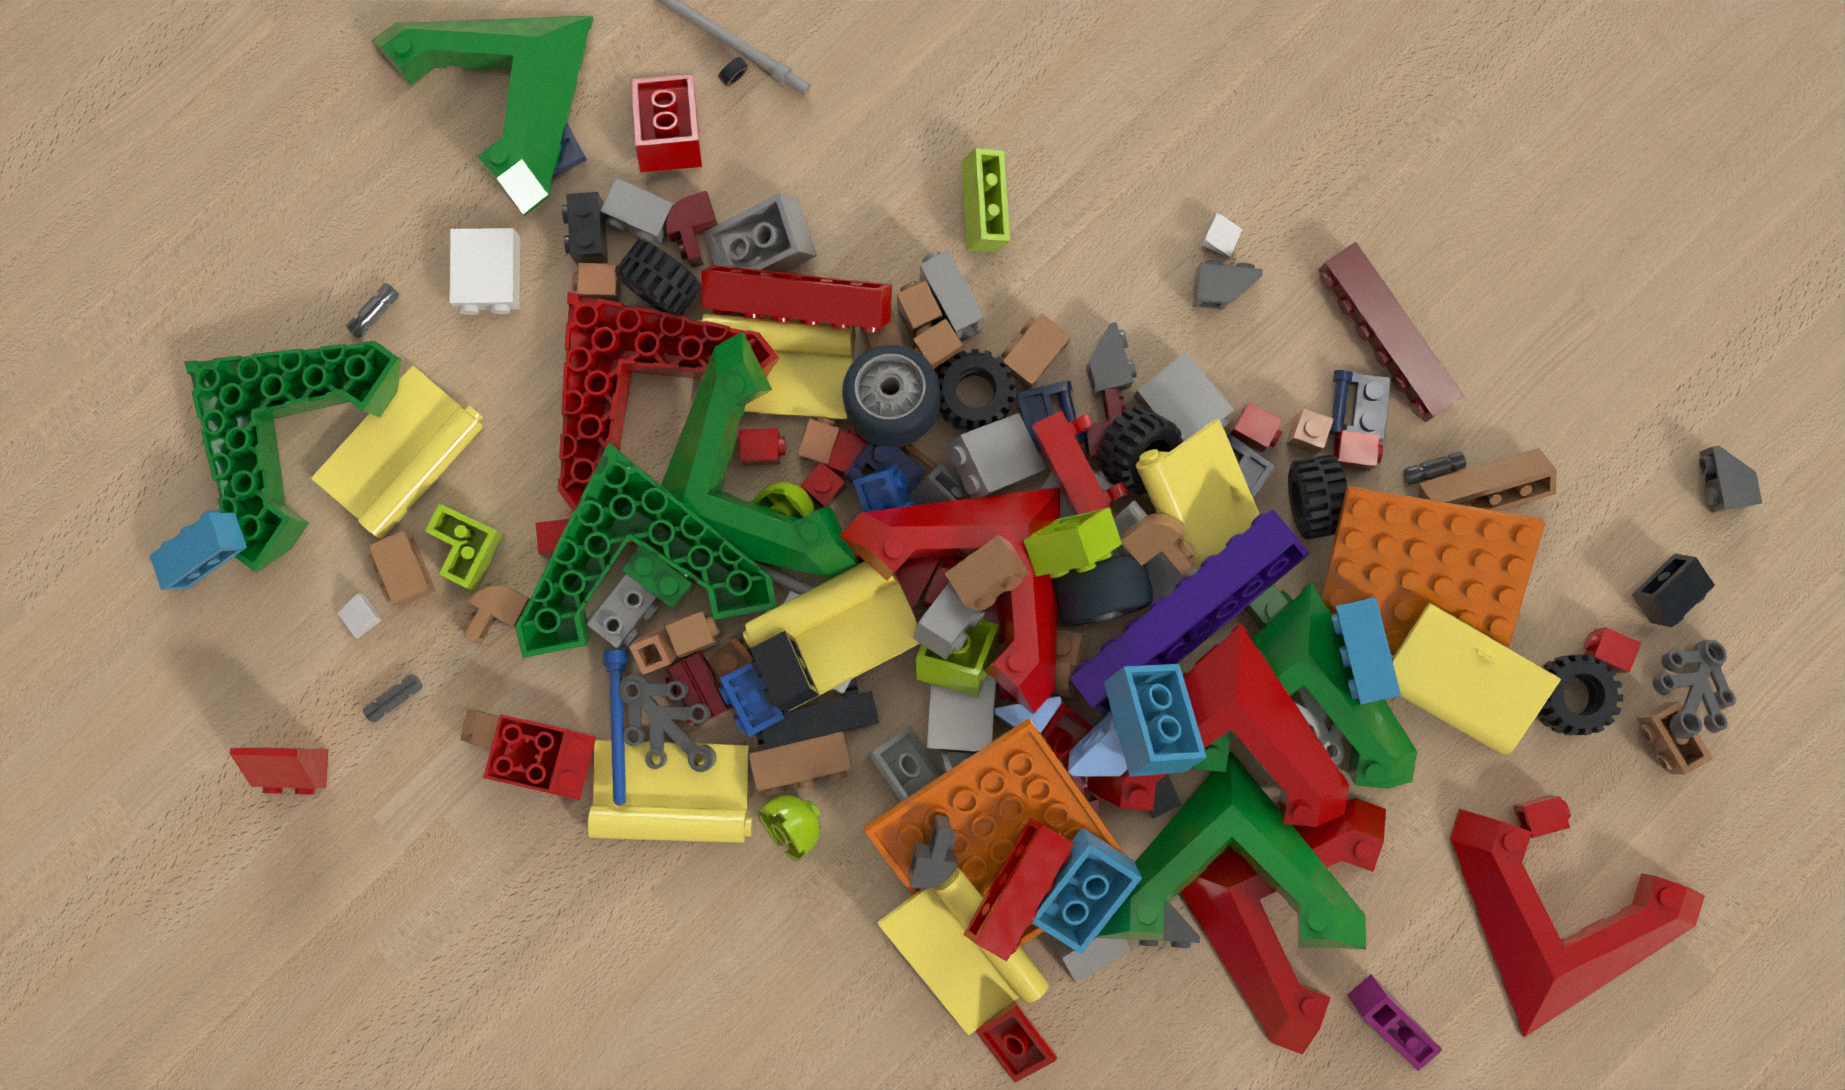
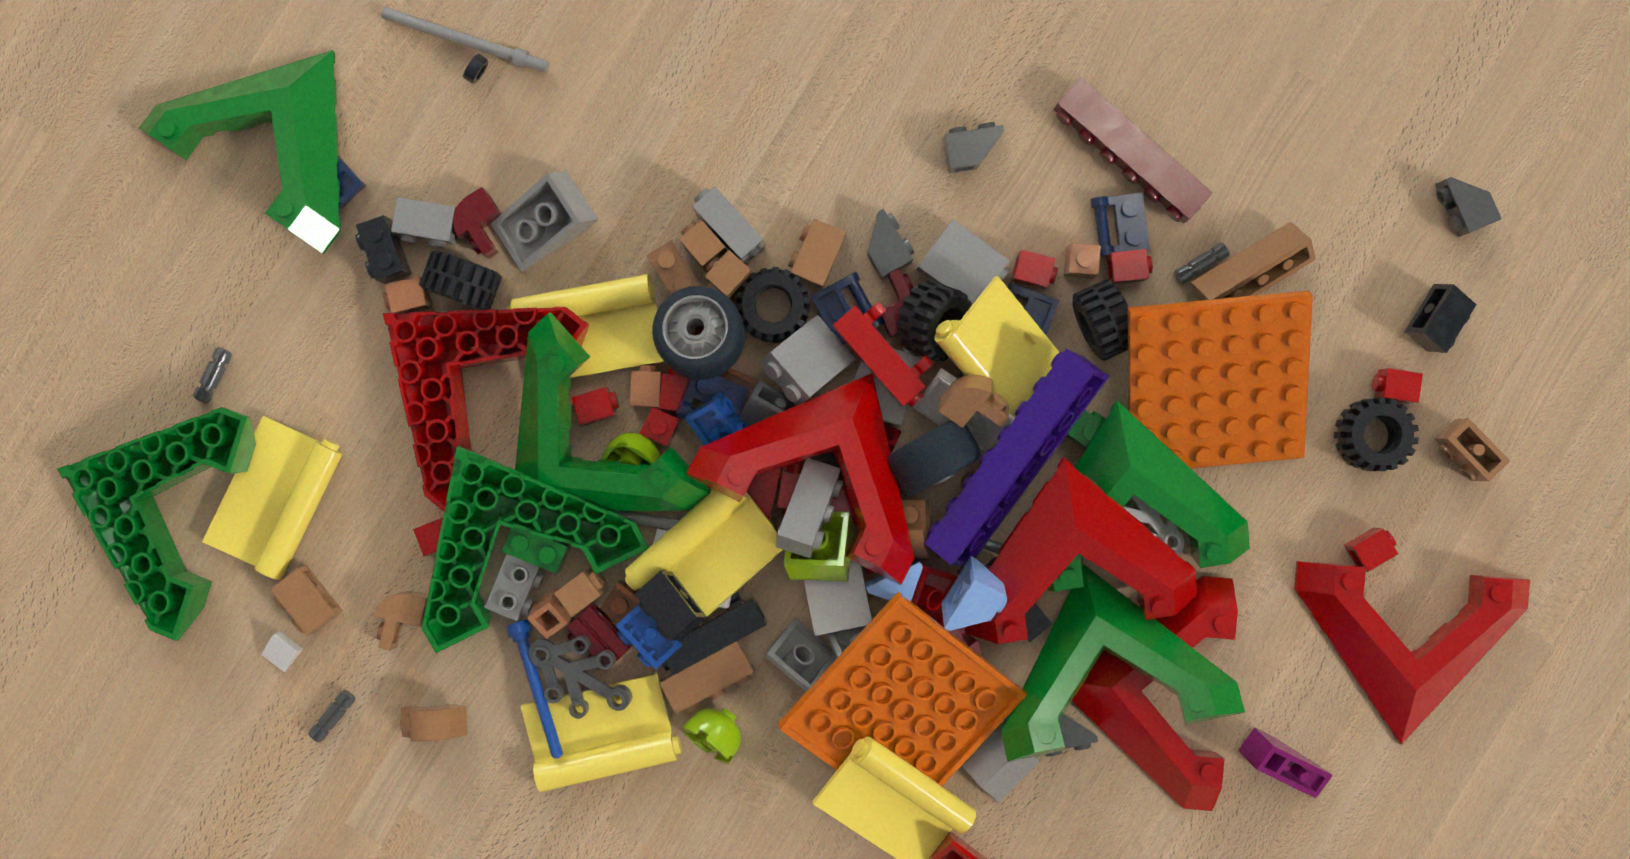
camera: 10 degrees left, 5 degrees up
(197, 550) = (120, 635): dark azure brick -> none
(283, 768) = (252, 803): red slope -> none
(472, 546) = (363, 566): lime brick -> none
(484, 270) = (302, 312): white brick -> none
(540, 756) = (476, 735): red slope -> none
(666, 123) = (427, 133): red slope -> none
(796, 297) = (589, 264): red brick -> none
(935, 861) = (848, 737): dark grey brick -> none
(985, 200) = (736, 127): lime brick -> none
(987, 574) = (827, 474): medium nougat brick -> none
(1019, 889) = (928, 744): red brick -> none
(1073, 543) = (896, 424): lime brick -> none
(1086, 891) = (983, 727): dark azure brick -> none
(1154, 719) = (1009, 564): dark azure brick -> none
(1222, 236) = (958, 102): white slope -> none
(1366, 651) = (1181, 453): dark azure brick -> none
(1470, 680) = (1276, 449): light yellow door -> none
(1709, 657) = (1487, 368): dark grey plant -> none

